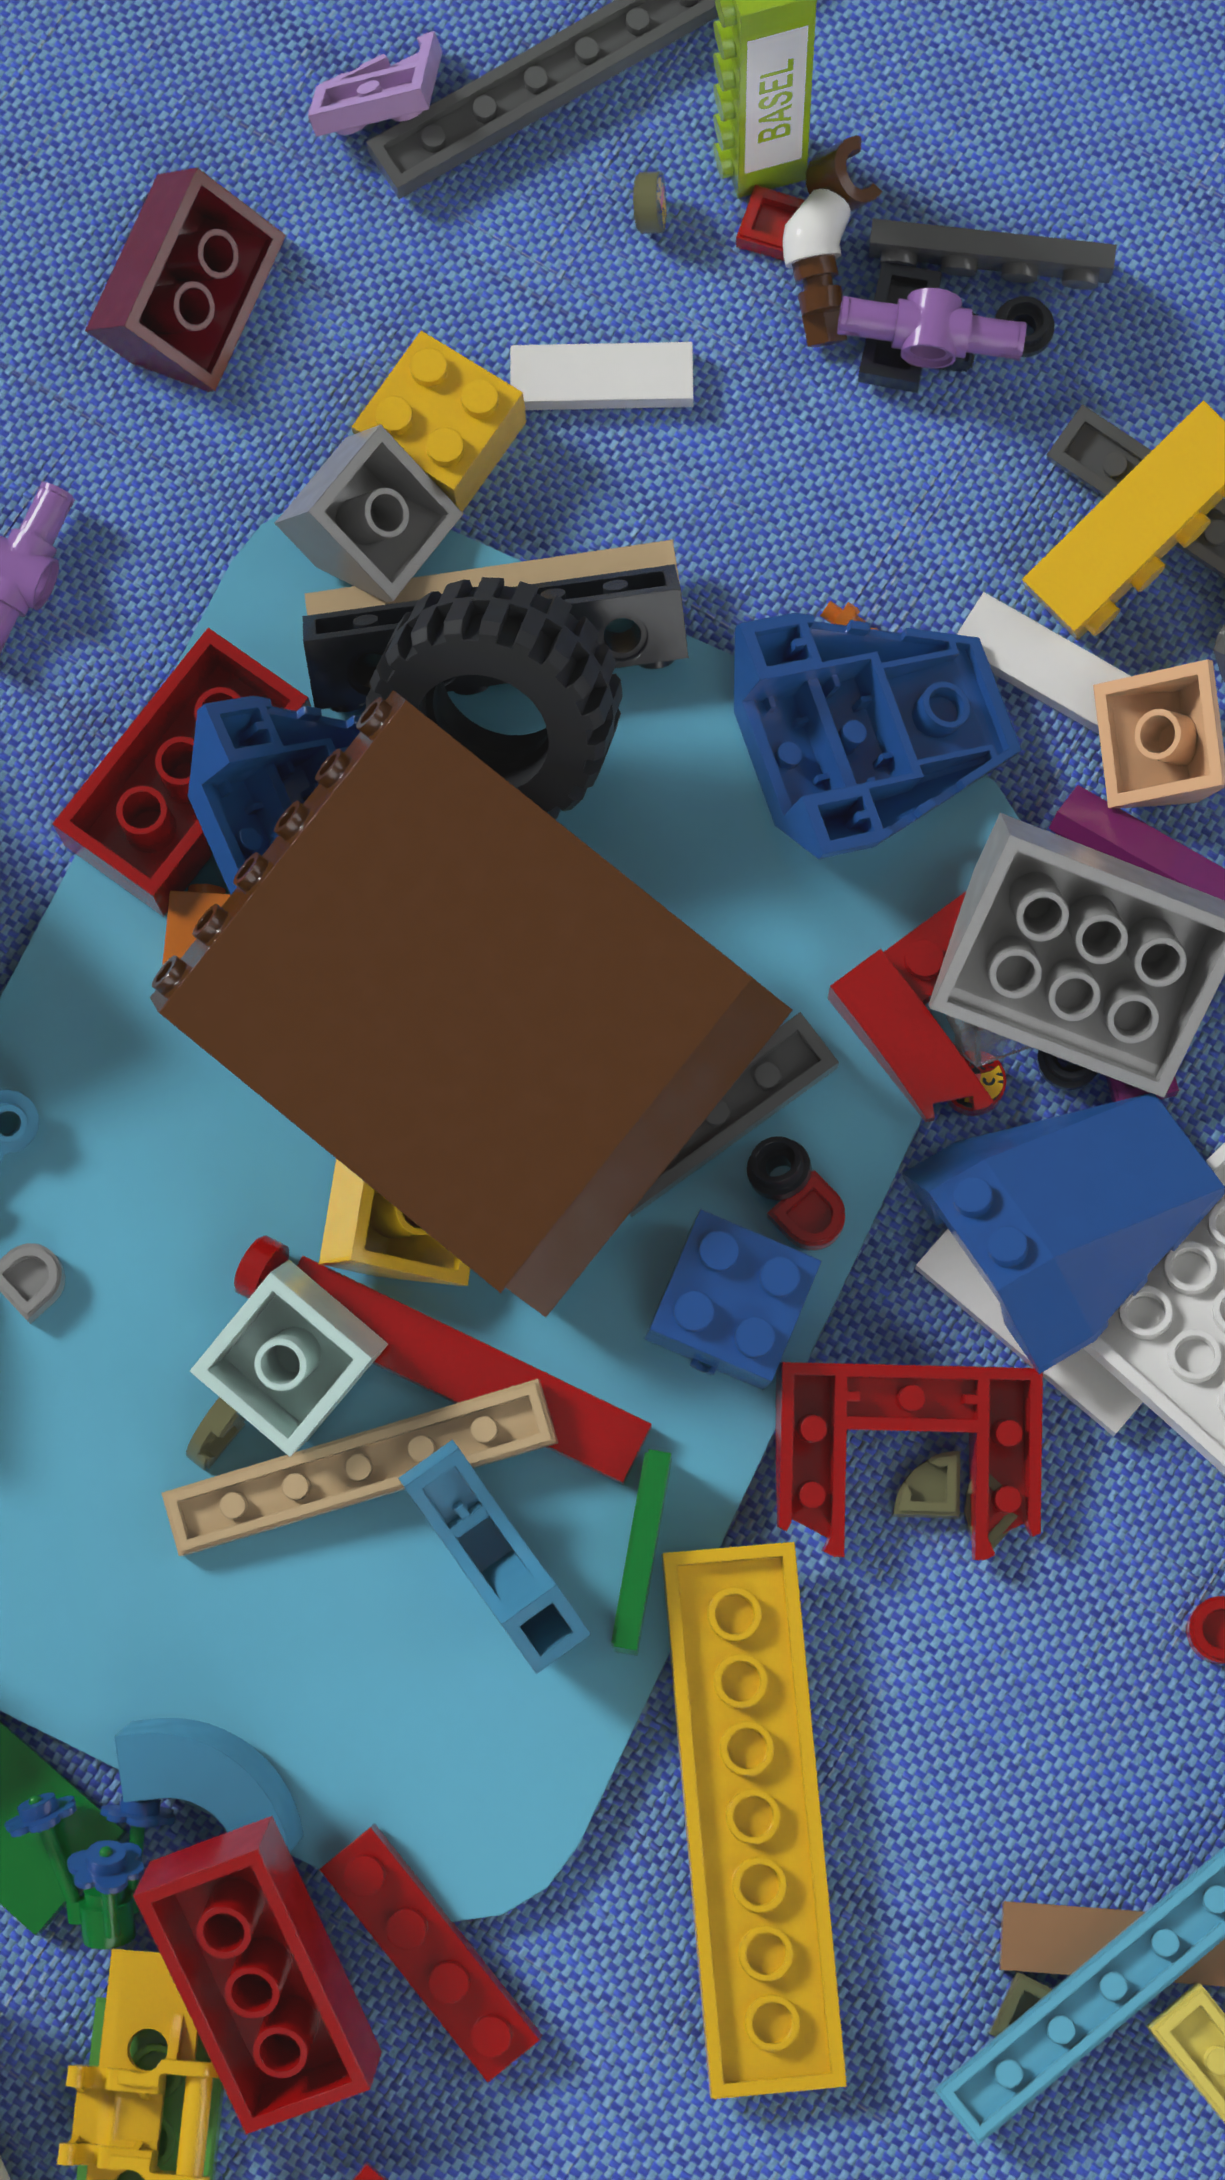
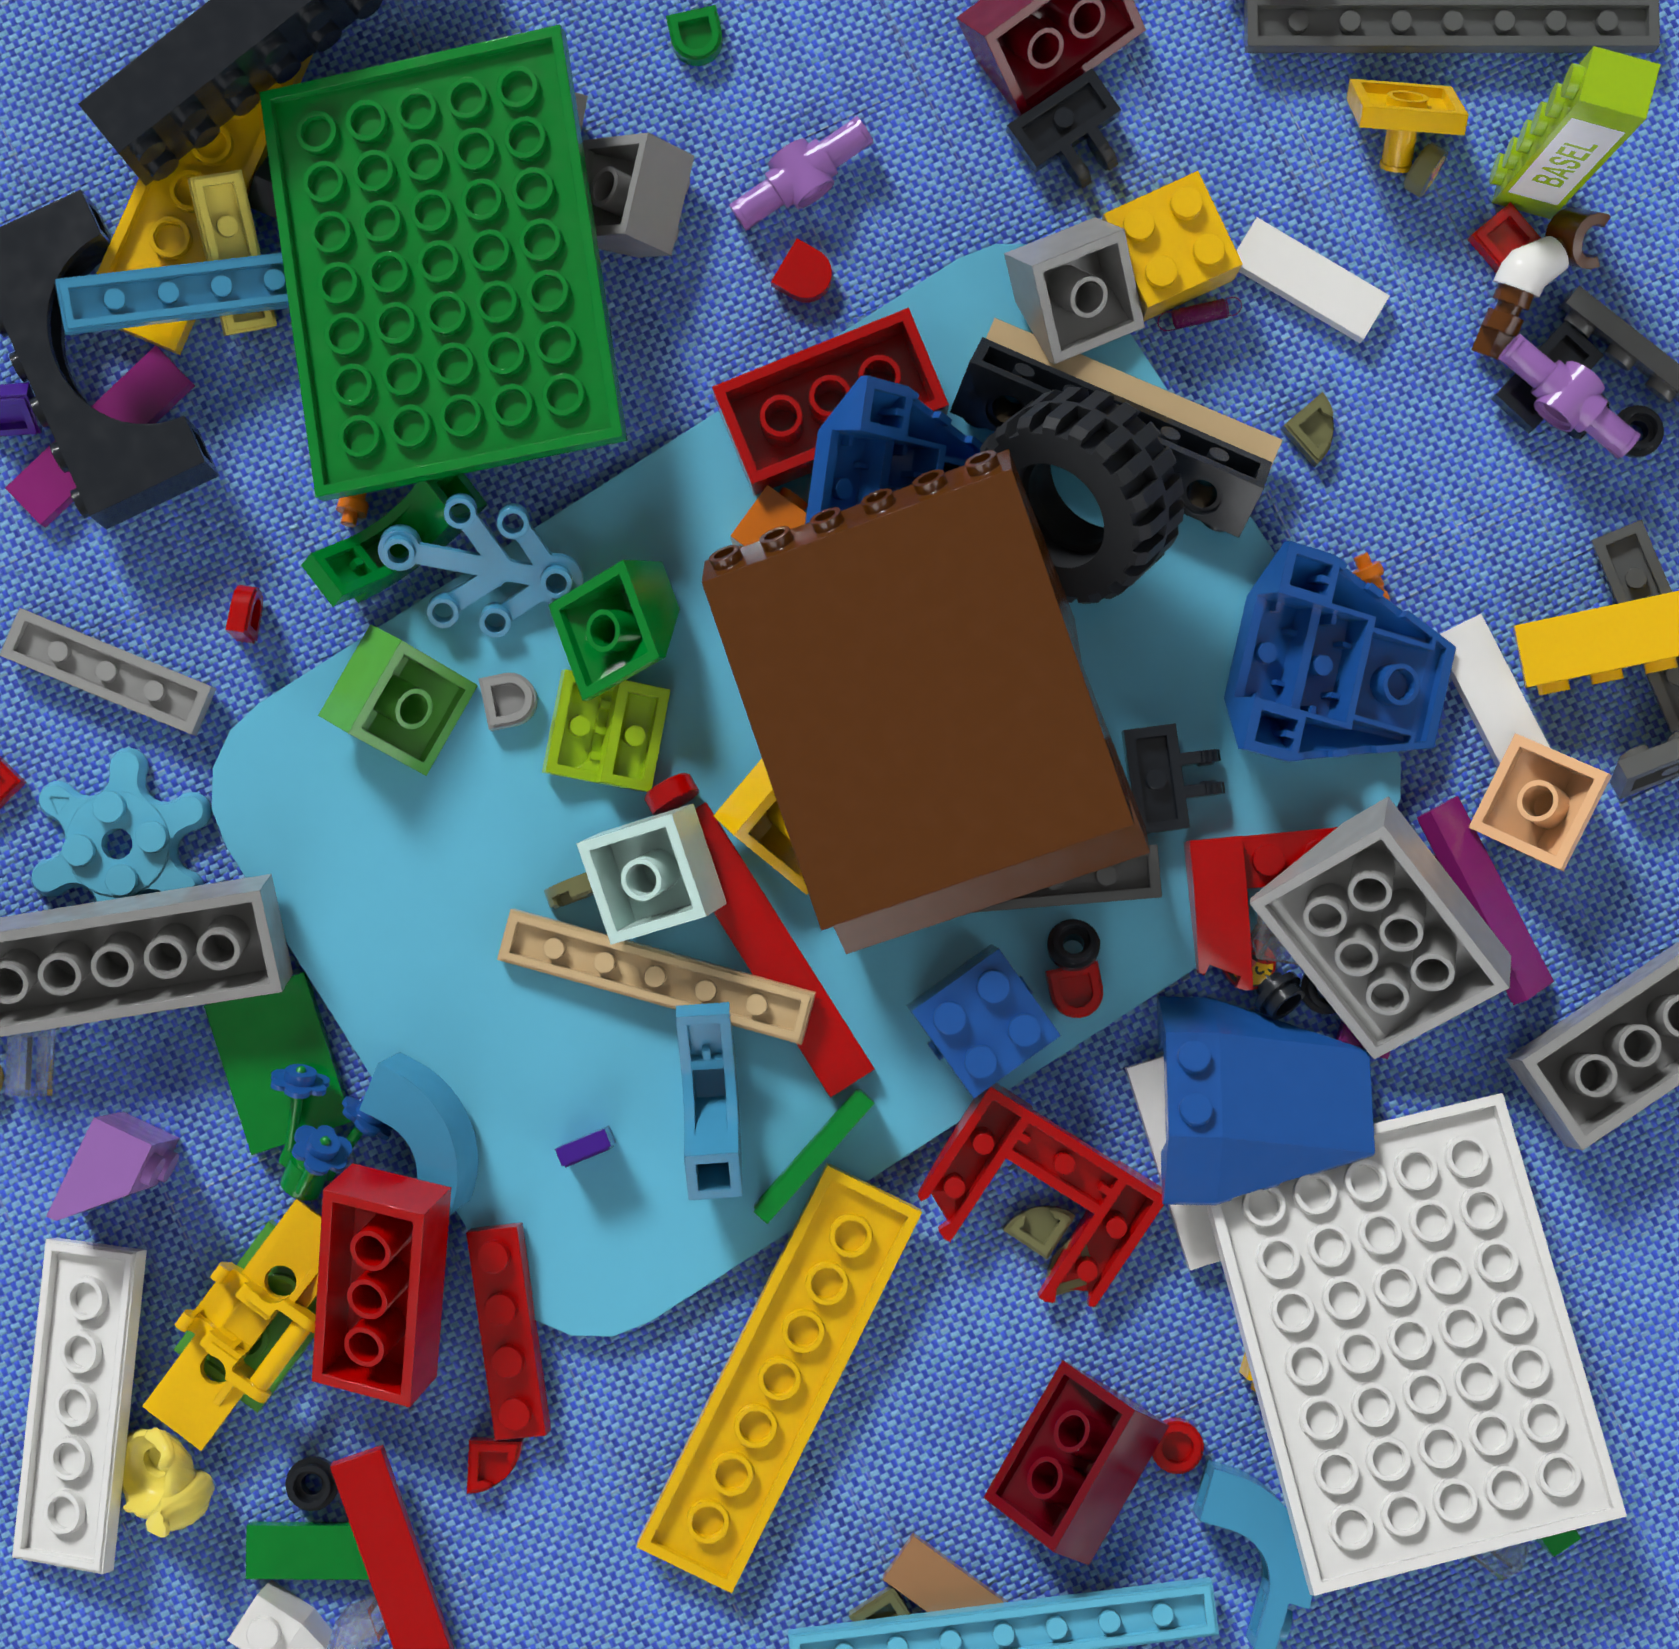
camera: 25 degrees right, 10 degrees up
(81, 670) = (803, 273): none -> red tile
(95, 1126) = (616, 624): none -> green slope
(152, 1247) = (608, 738): none -> lime slope
(258, 367) = (1065, 121): none -> black hinge
(393, 1694) = (585, 1147): none -> dark purple tile
(498, 2112) = (490, 1461): none -> red tile
(512, 472) = (1199, 313): none -> magenta piece
(594, 158) = (1403, 112): none -> yellow tile
(697, 517) = (1312, 429): none -> olive tile
(757, 942) = (1157, 776): none -> black hinge
(1025, 1092) = (1279, 994): none -> black plate
(1125, 1710) = (1075, 1463): none -> dark red slope

